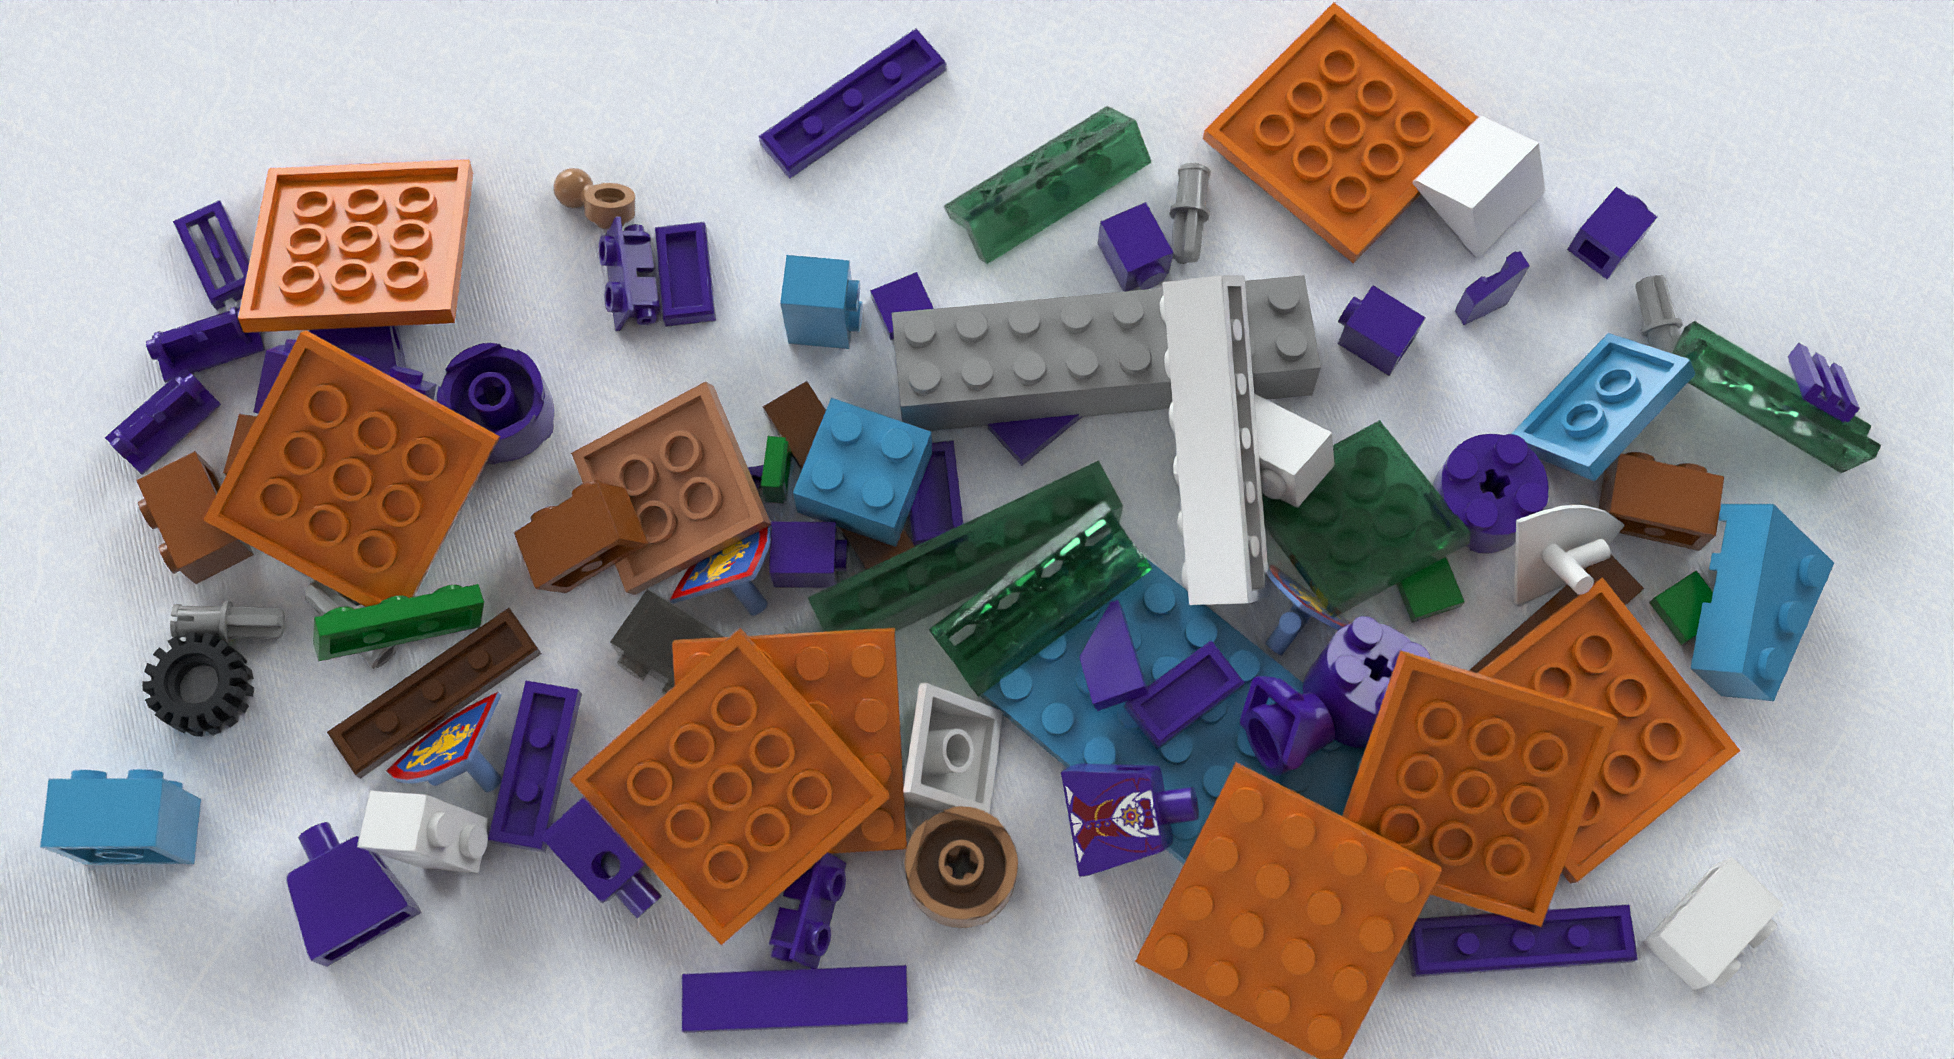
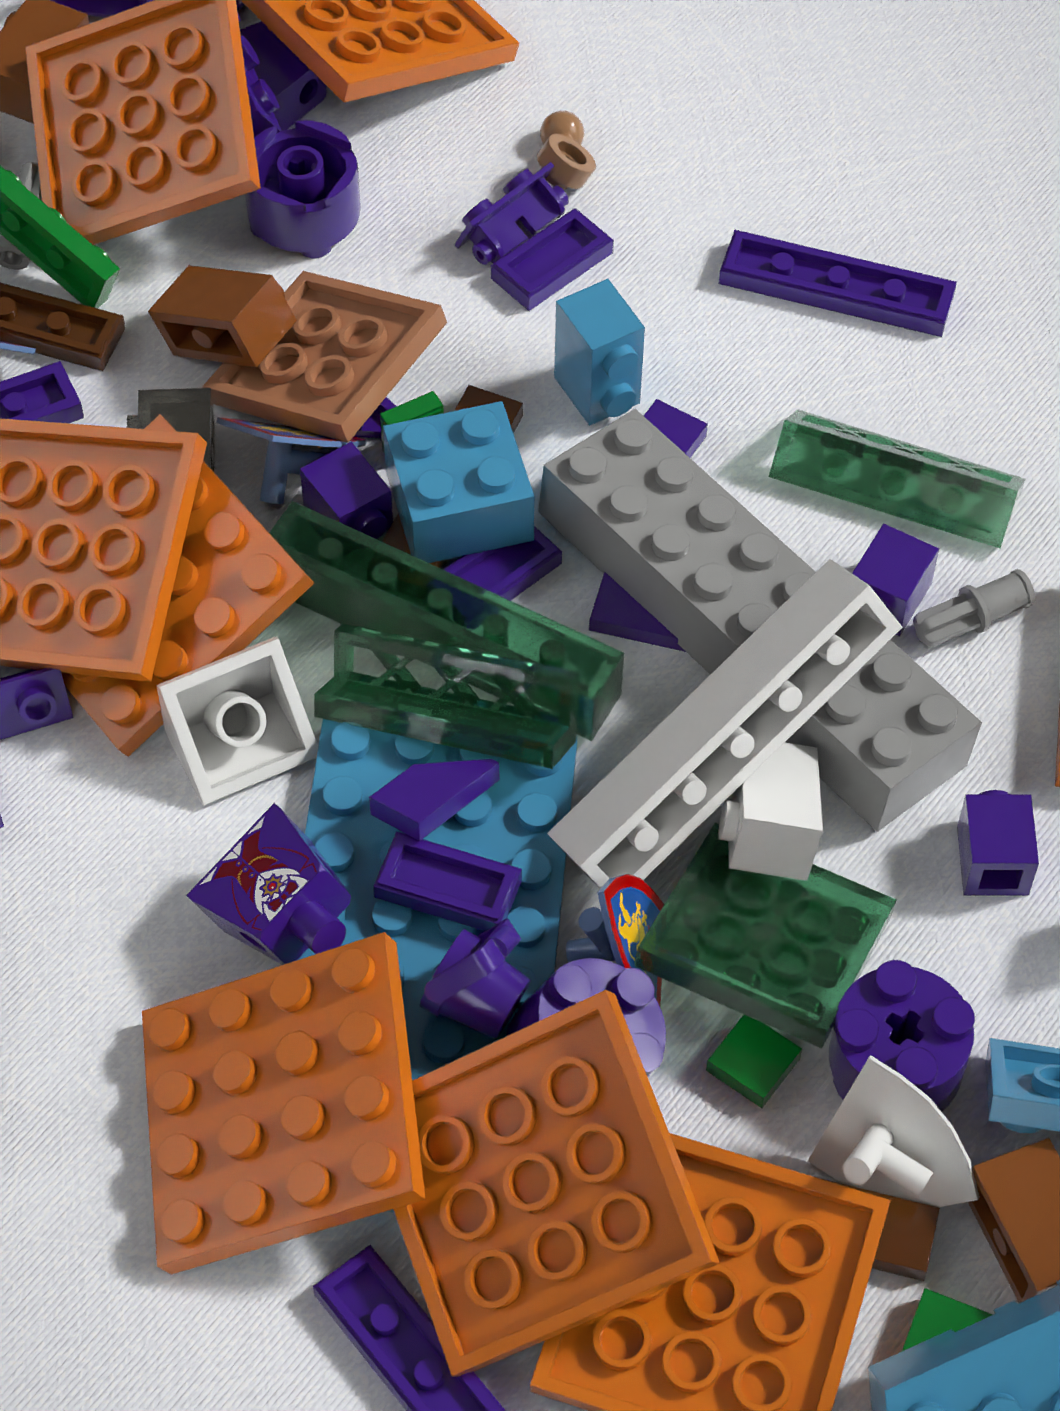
camera: 55 degrees right, 15 degrees down
(943, 841) = (125, 794): medium nougat brick -> none

